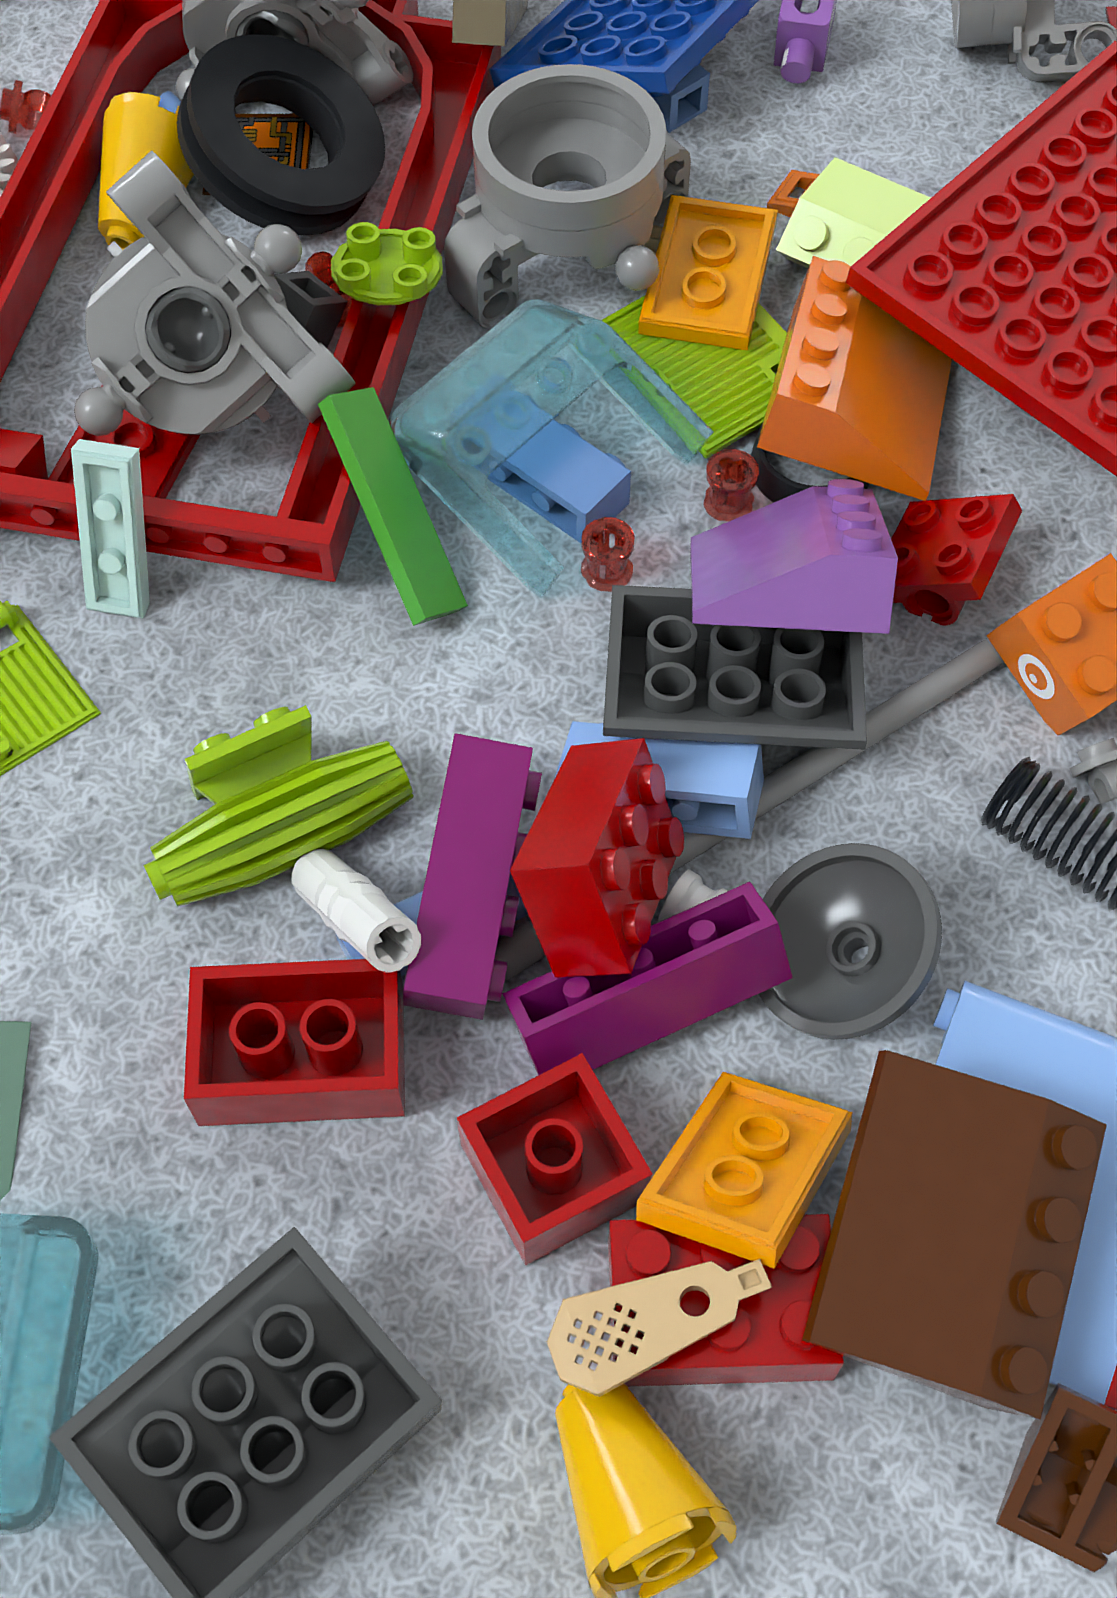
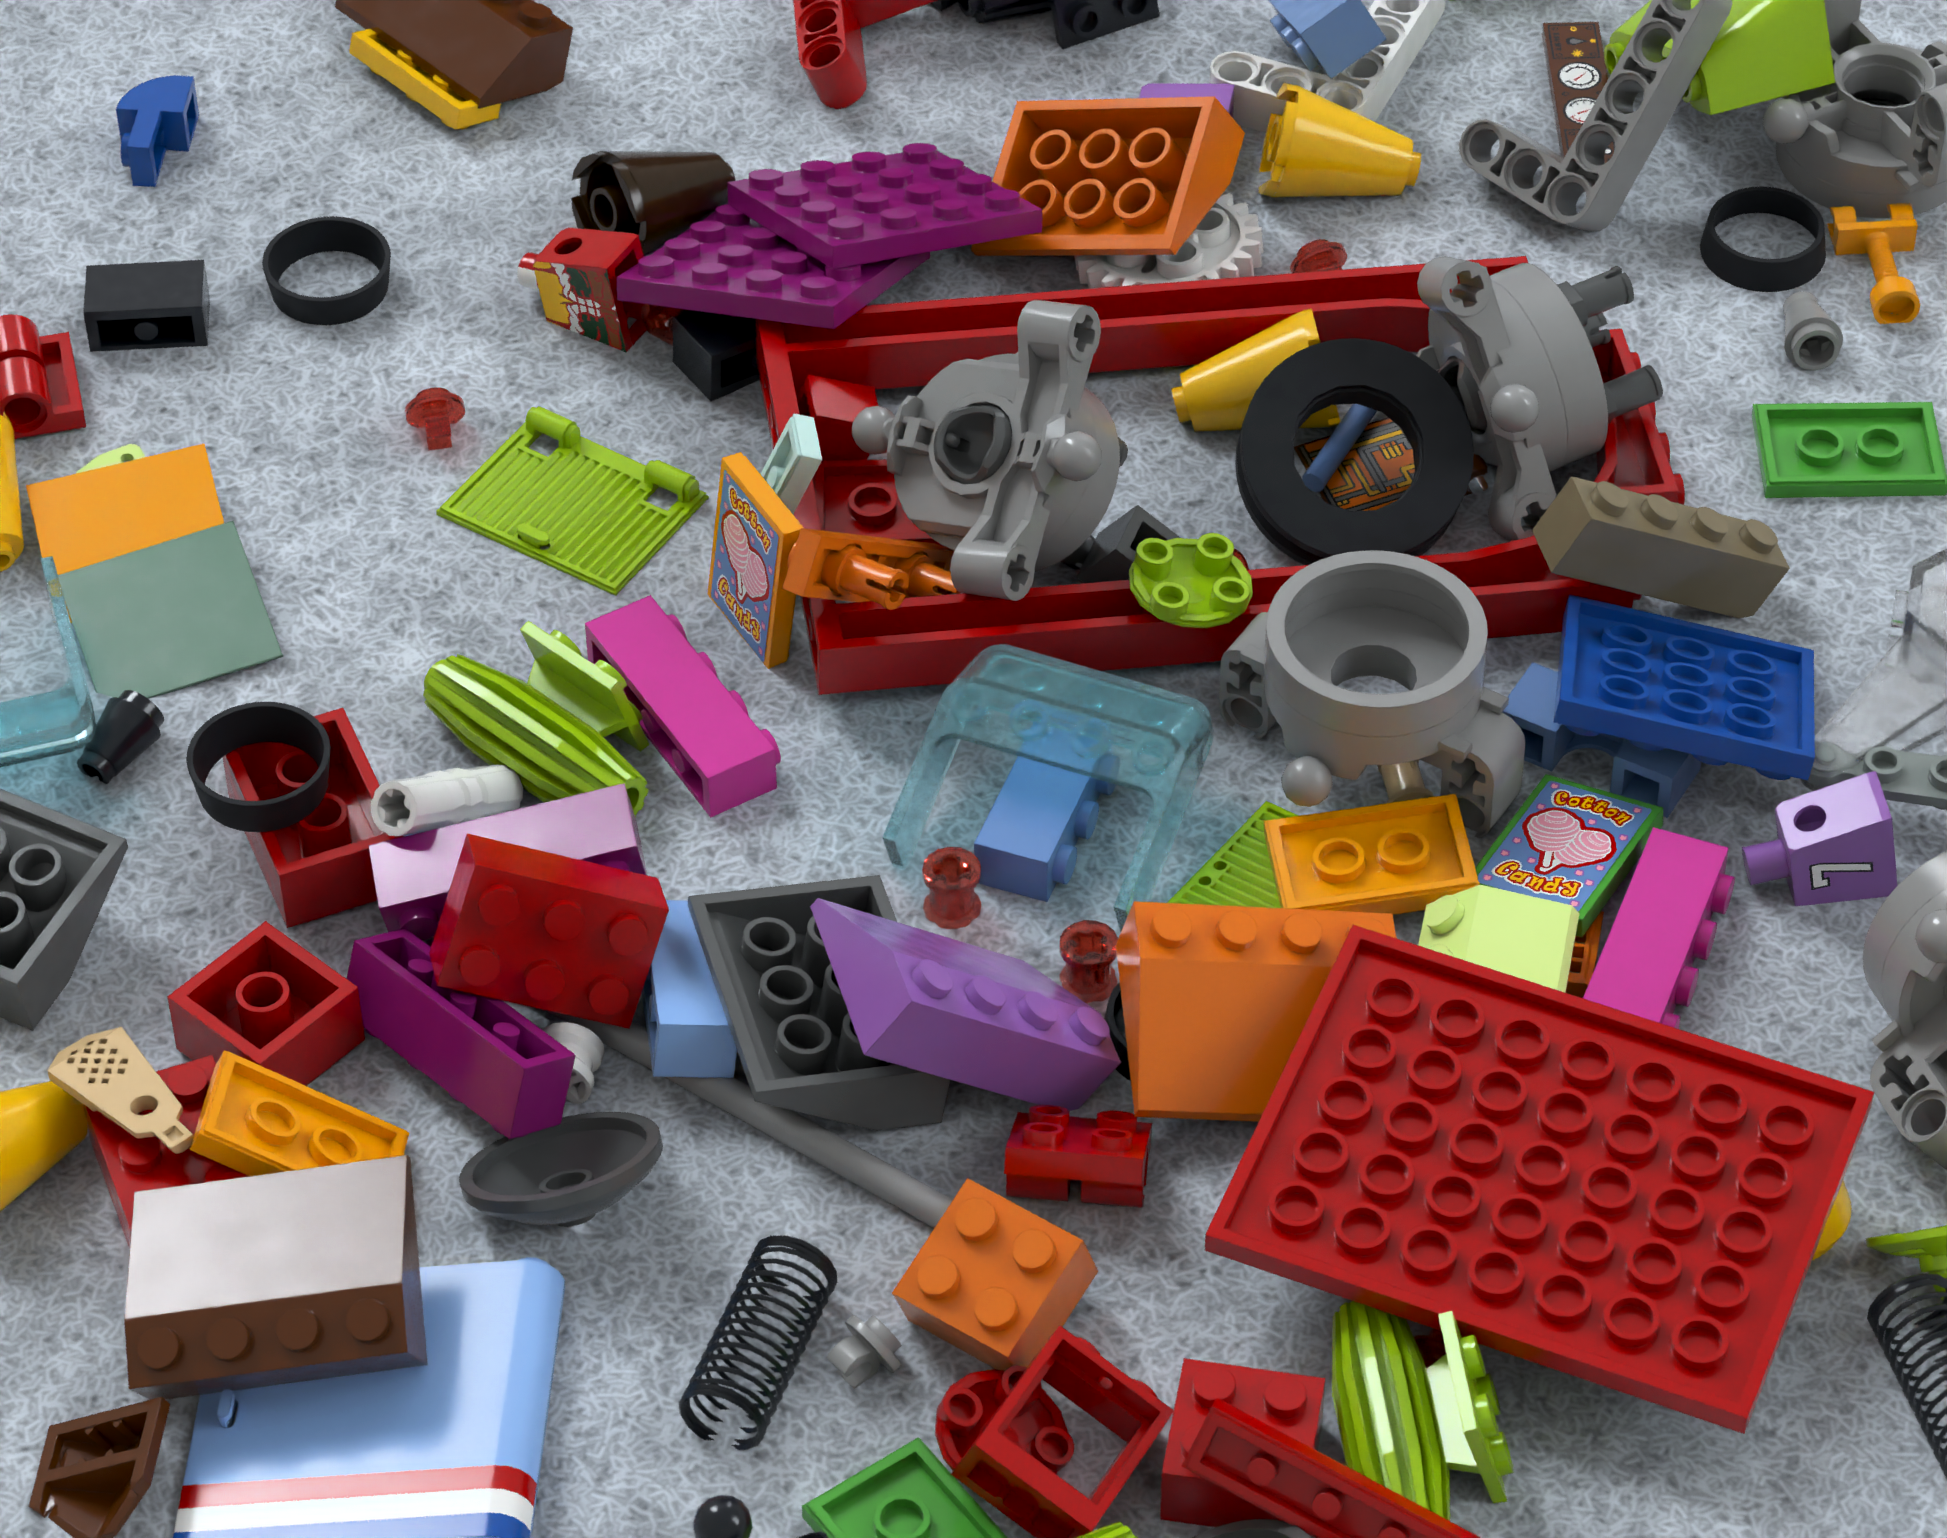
camera: 70 degrees right, 15 degrees down
(69, 1193) = (122, 734): none -> black cone
(182, 560) = (751, 558): none -> tile
(232, 1004) = (257, 724): none -> black tyre
(268, 469) = (867, 568): none -> orange plate
(339, 679) = (685, 707): none -> dark pink brick
(392, 505) = (904, 691): bright green tile -> none
(744, 160) = (1570, 846): none -> tile
(818, 123) = (1663, 928): none -> dark pink brick

